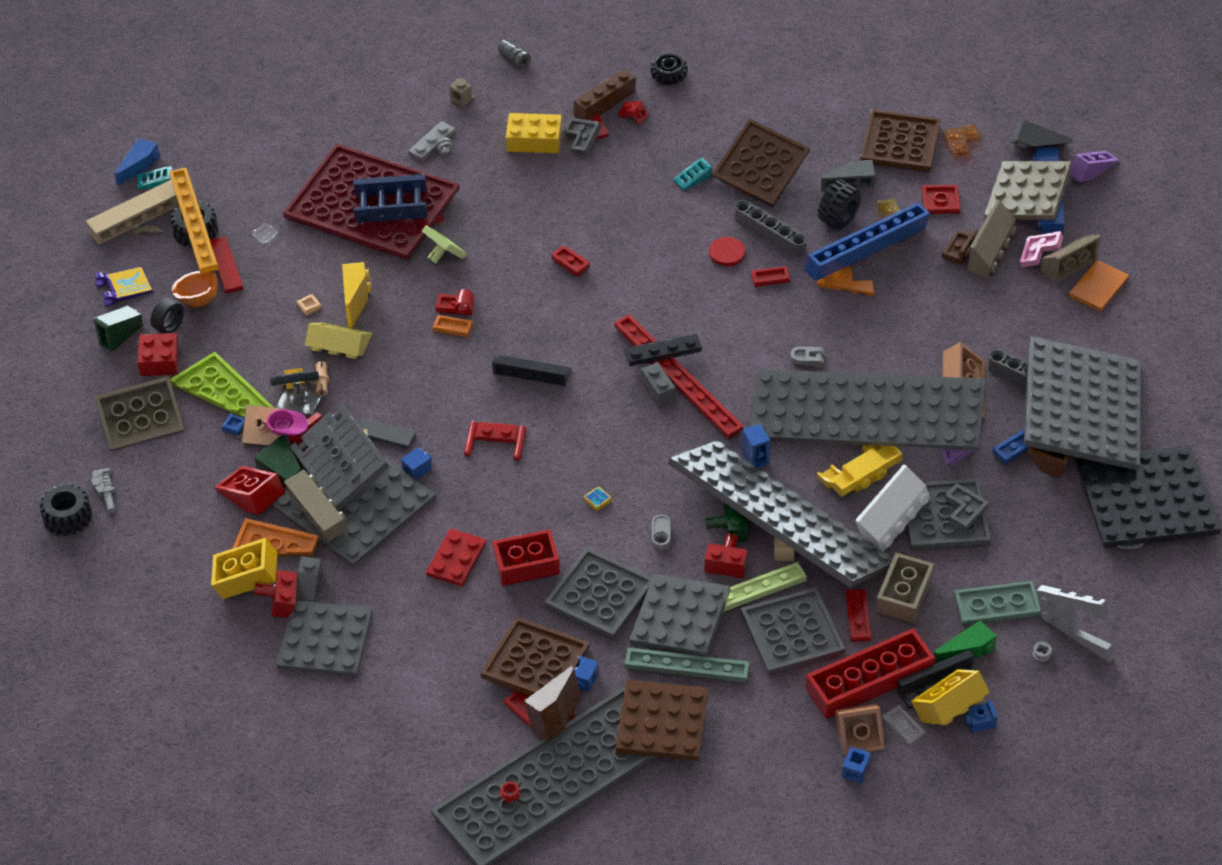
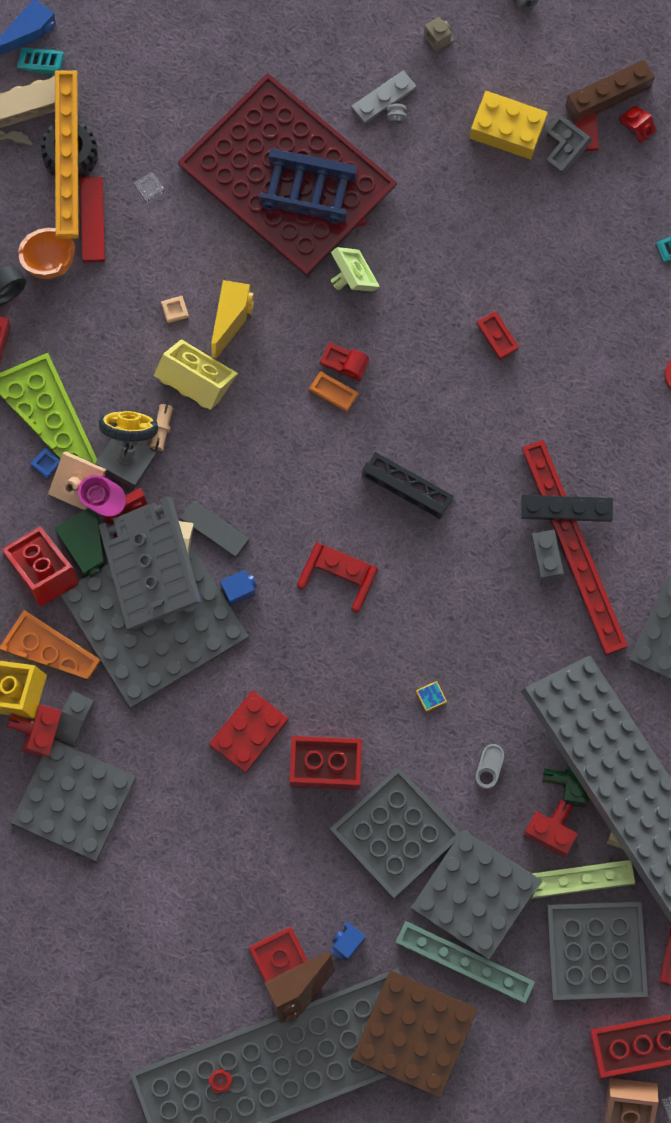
camera: 10 degrees right, 25 degrees up
(316, 506) = (105, 623): dark tan brick -> none
(532, 657) = (297, 905): reddish brown plate -> none
(756, 446) = (632, 685): blue brick -> none

